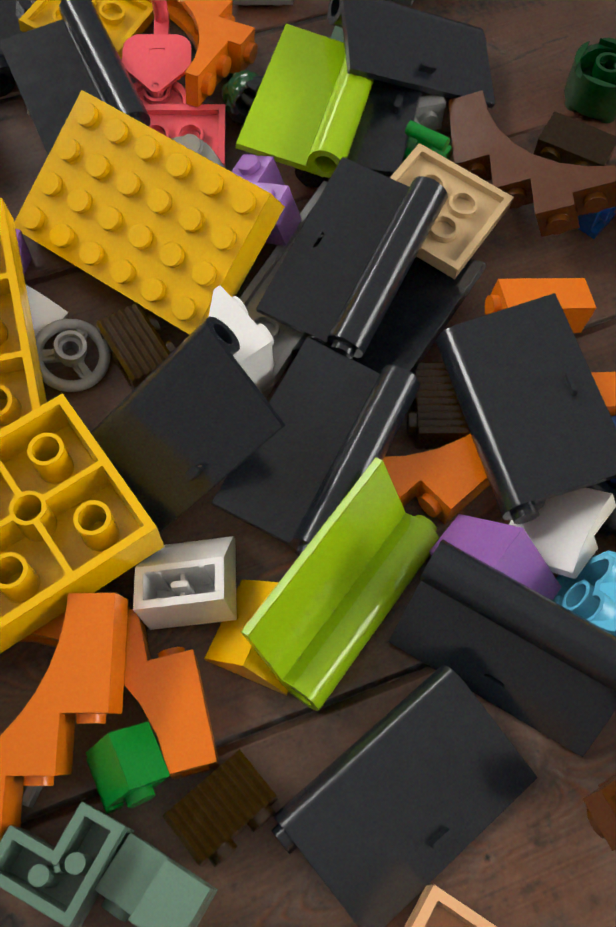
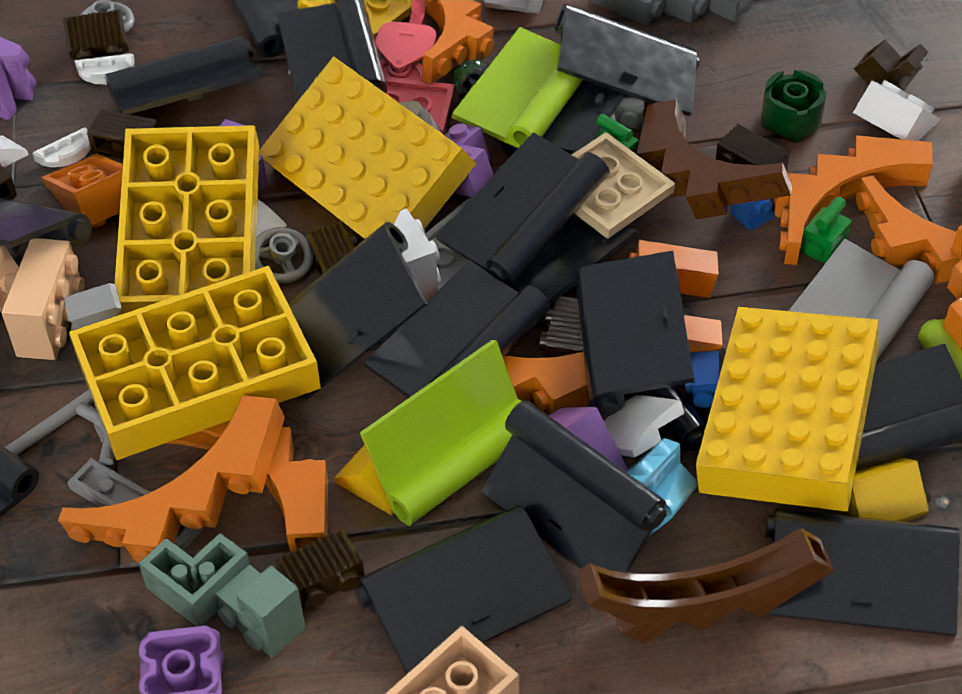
camera: 15 degrees right, 15 degrees down
(126, 767) = (257, 523): green brick -> none
(187, 584) = (330, 423): white slope -> none

